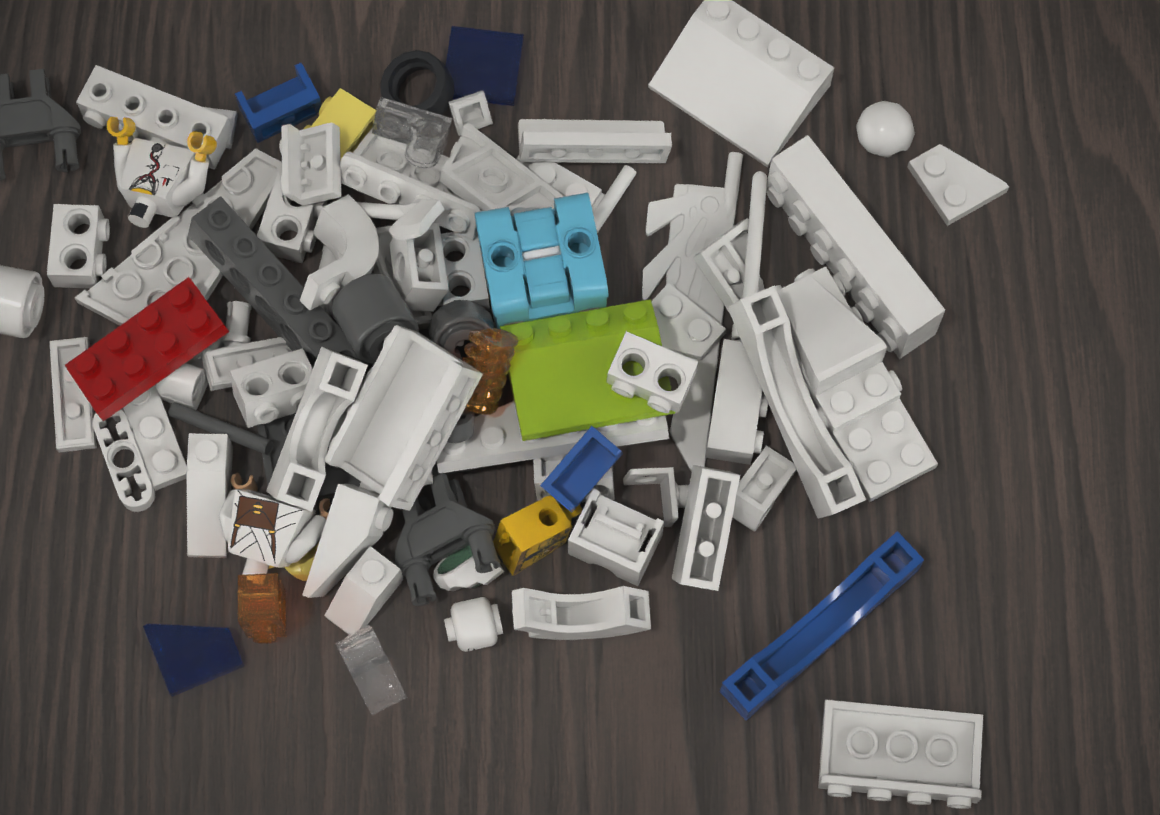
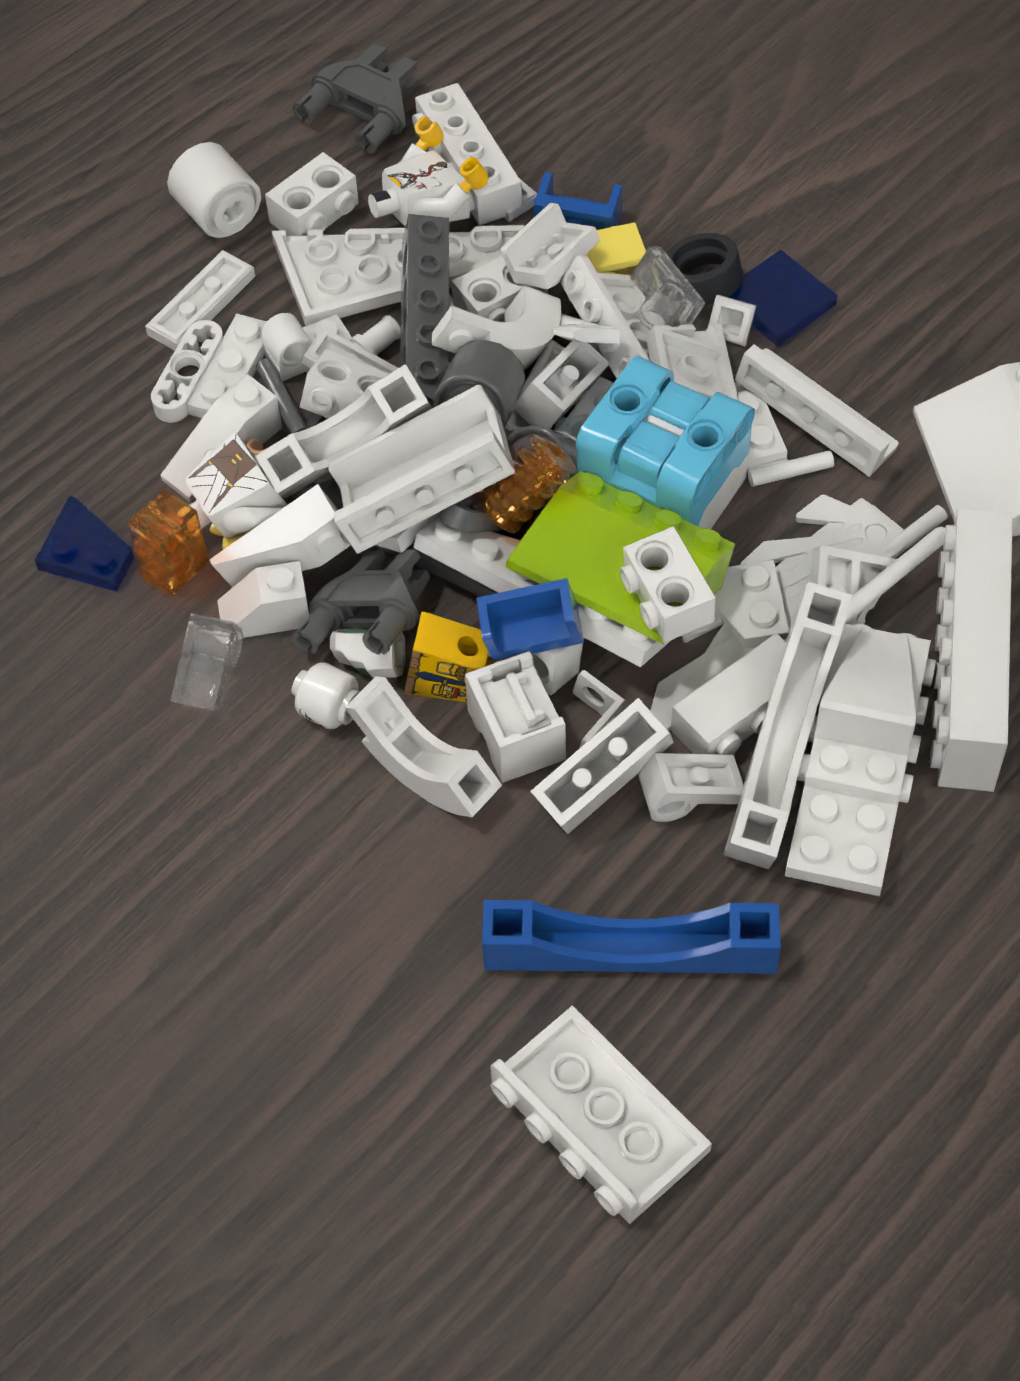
camera: 45 degrees right, 15 degrees down
(146, 349) = (282, 293): red plate -> none

